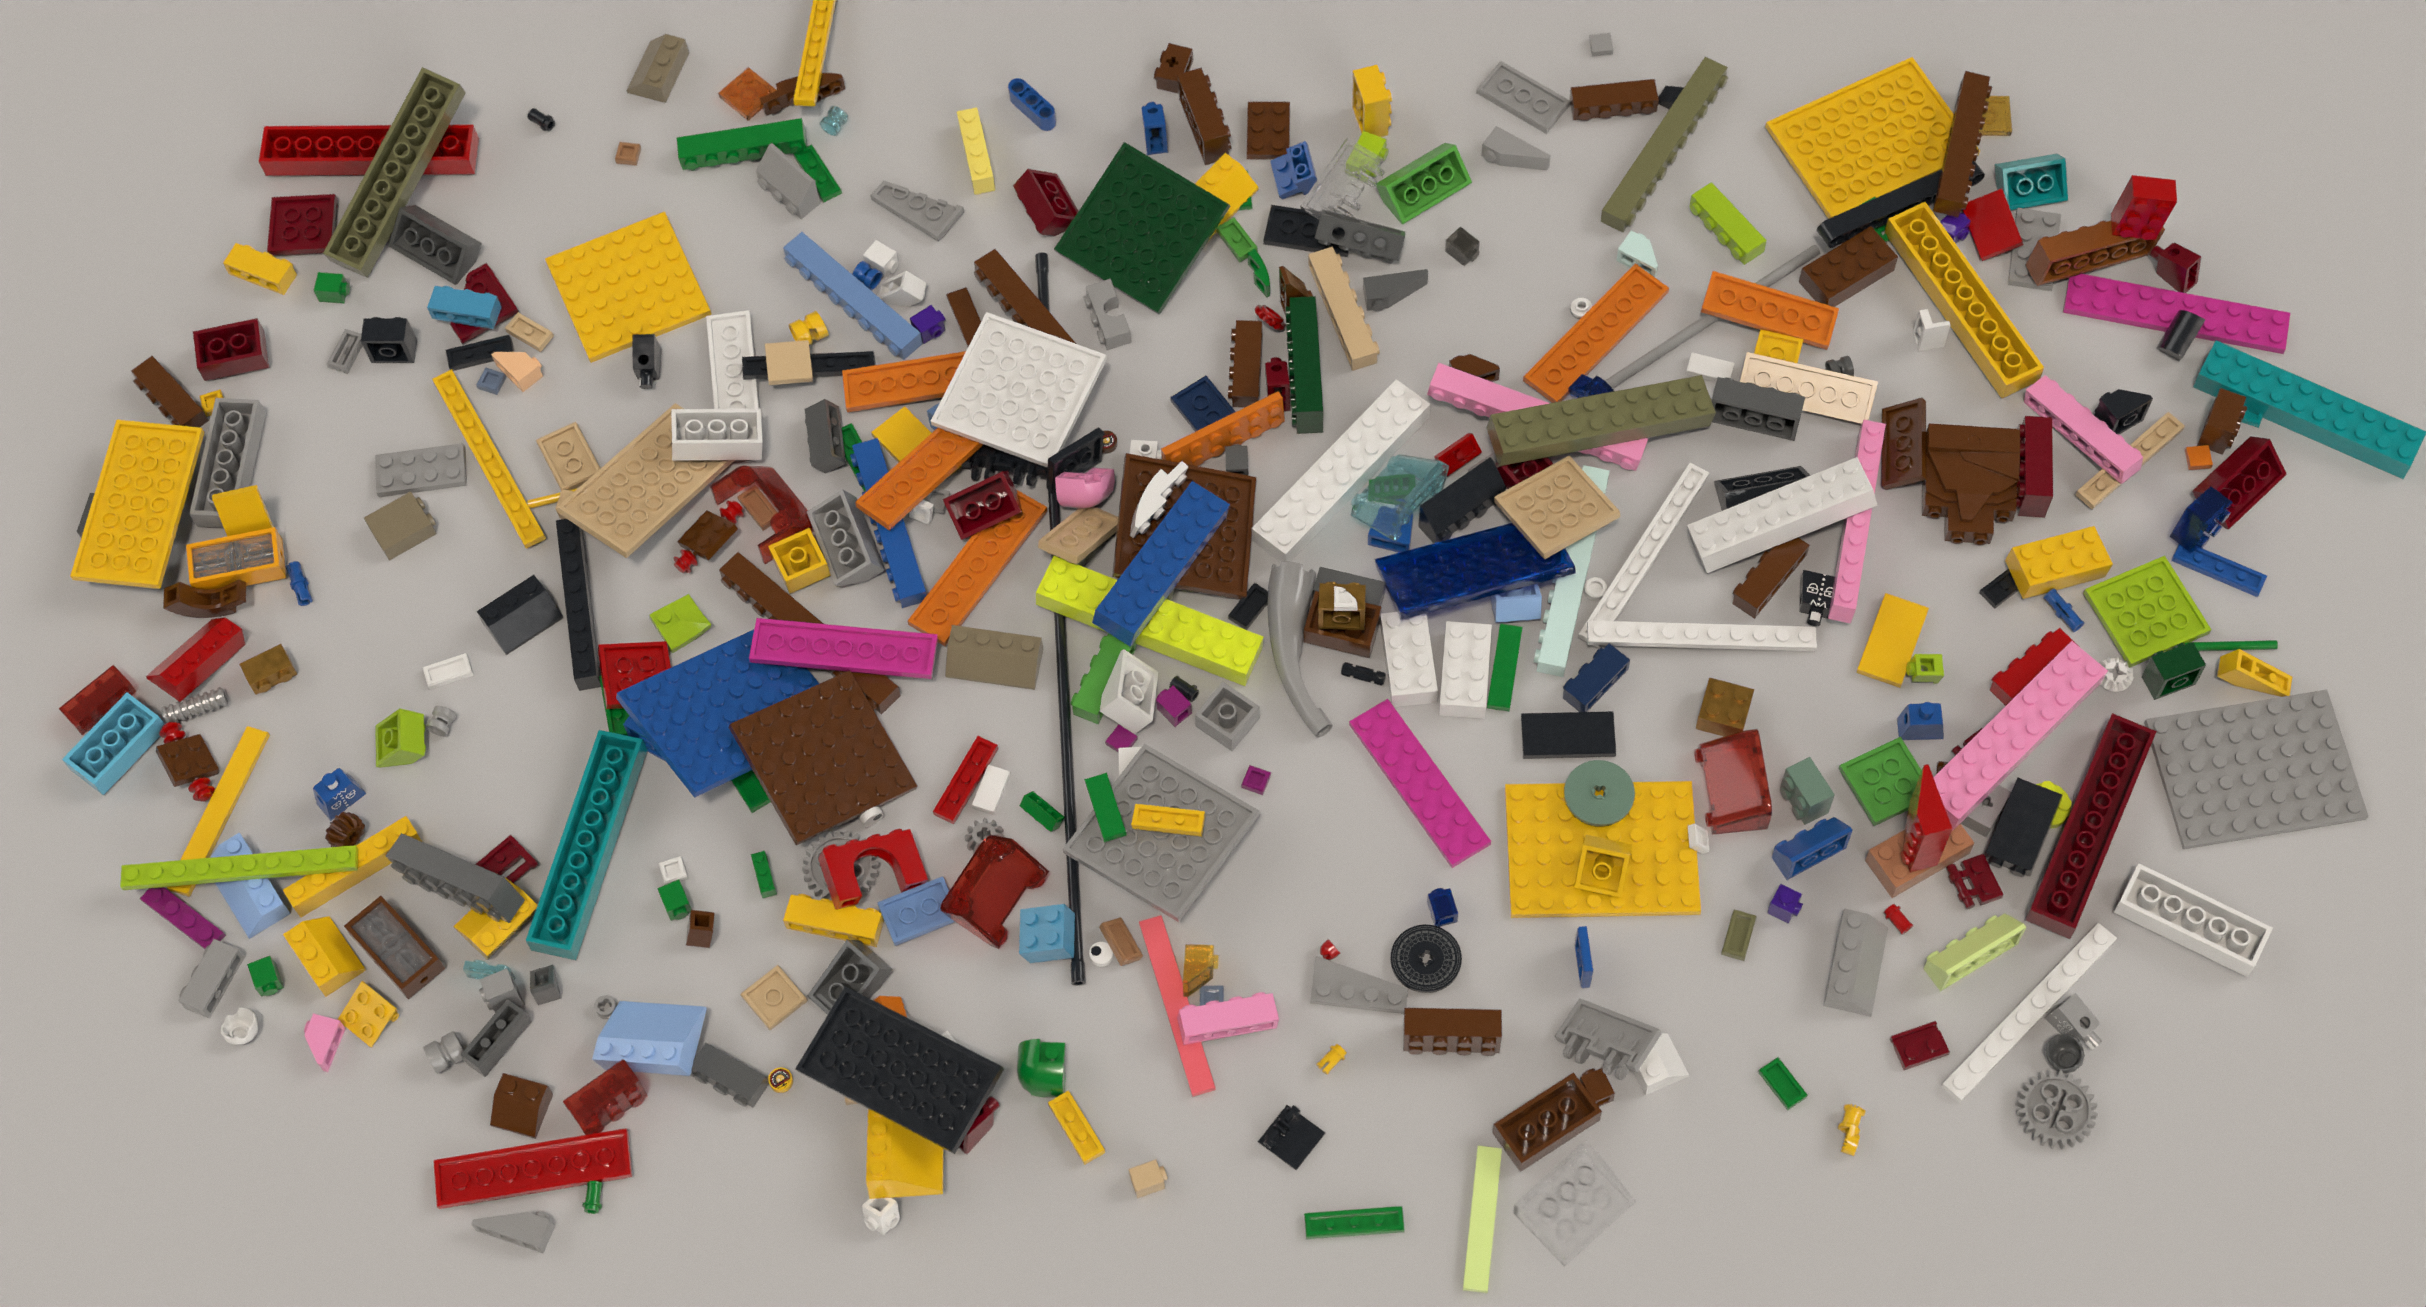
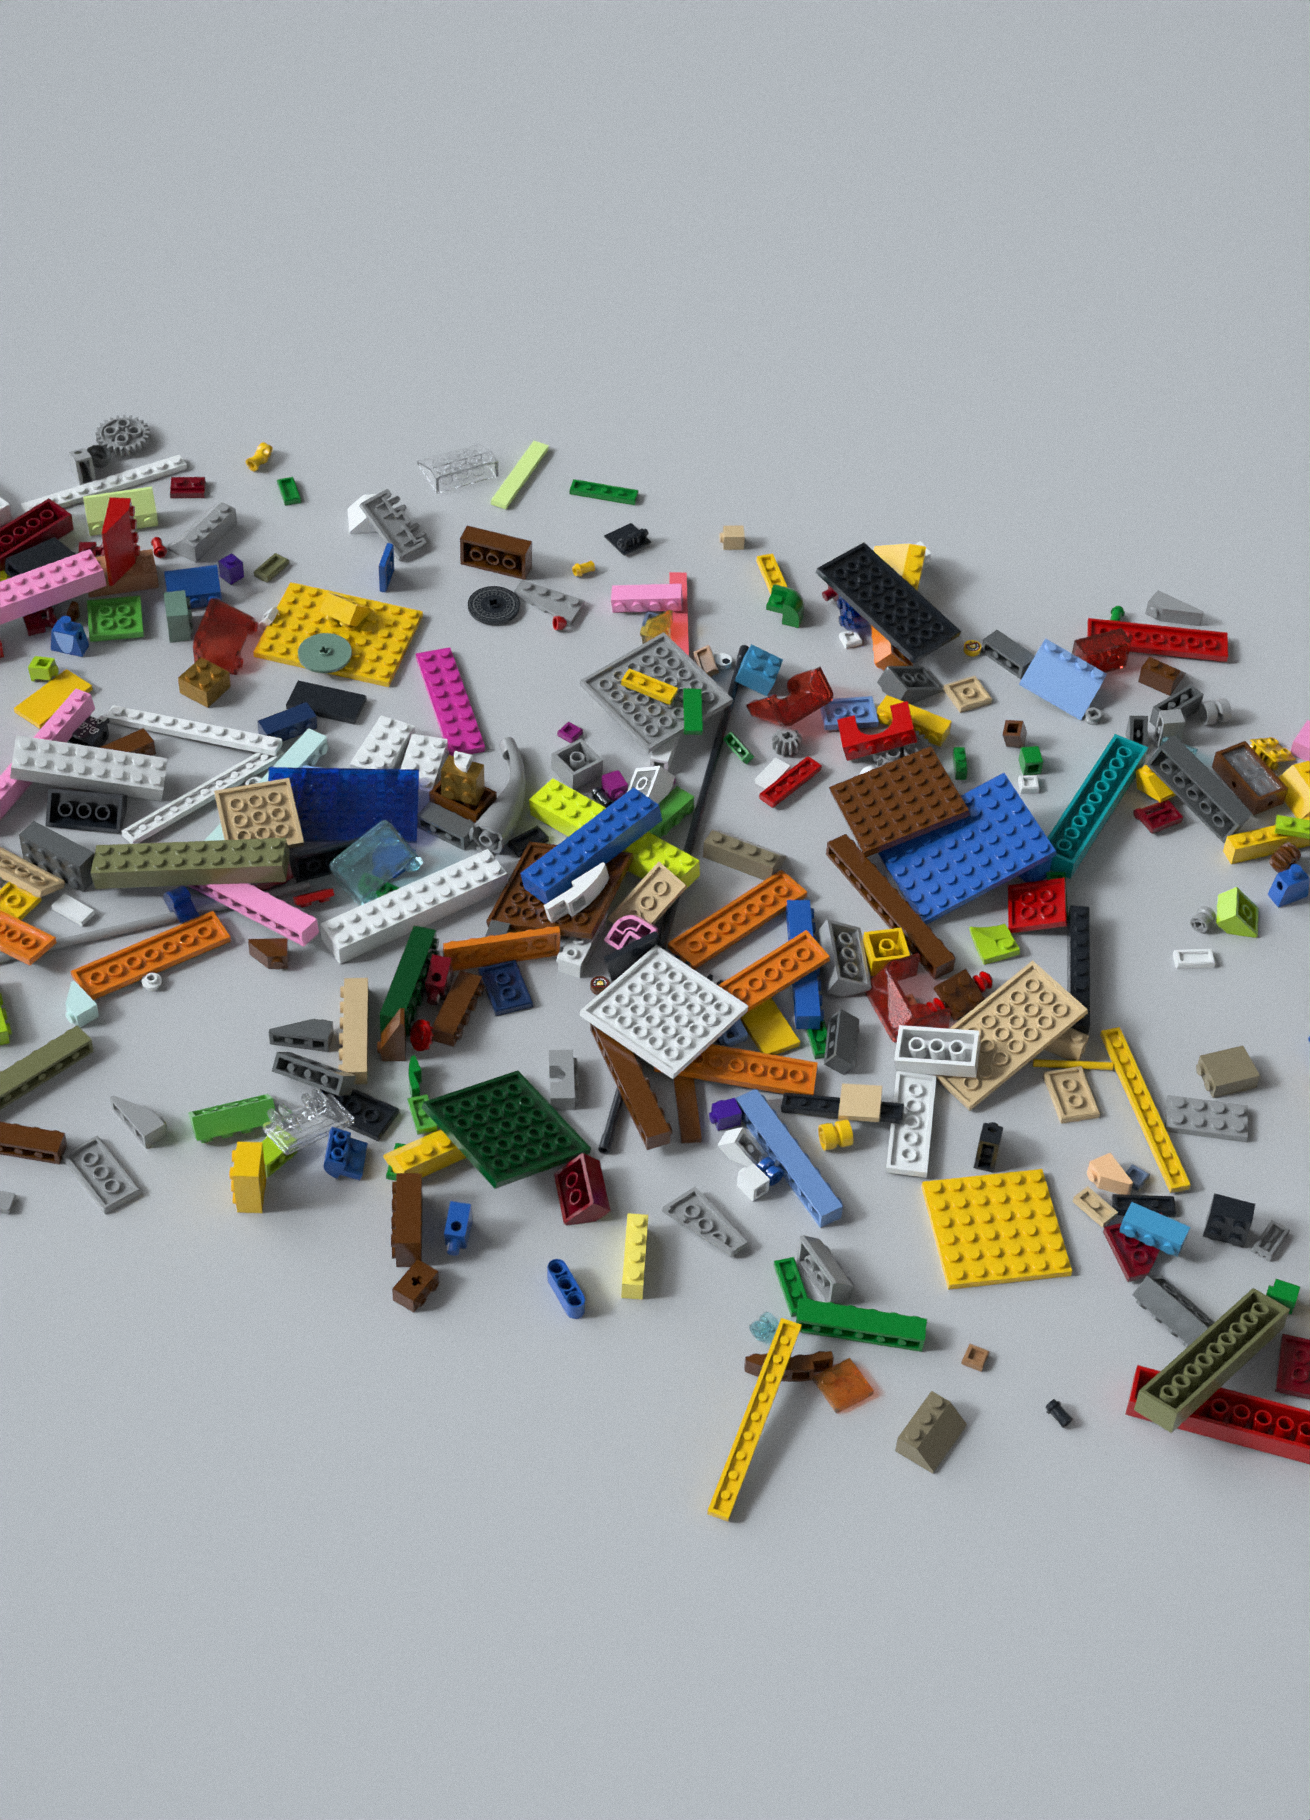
camera: 170 degrees left, 15 degrees down
(519, 614) = (1130, 980): black slope -> none
(843, 648) = (865, 869): dark pink plate -> none
(983, 504) = (720, 950): dark red slope -> none
(1267, 130) = (350, 1208): reddish brown plate -> none
(1442, 907) = (469, 624): clear blue brick -> none
(1462, 246) = (226, 1052): clear smoke brick -> none
(1504, 667) = (348, 752): green tile -> none
(1546, 1122) = (455, 498): reddish brown brick -> none
(1598, 1086) = (414, 510): reddish brown brick -> none

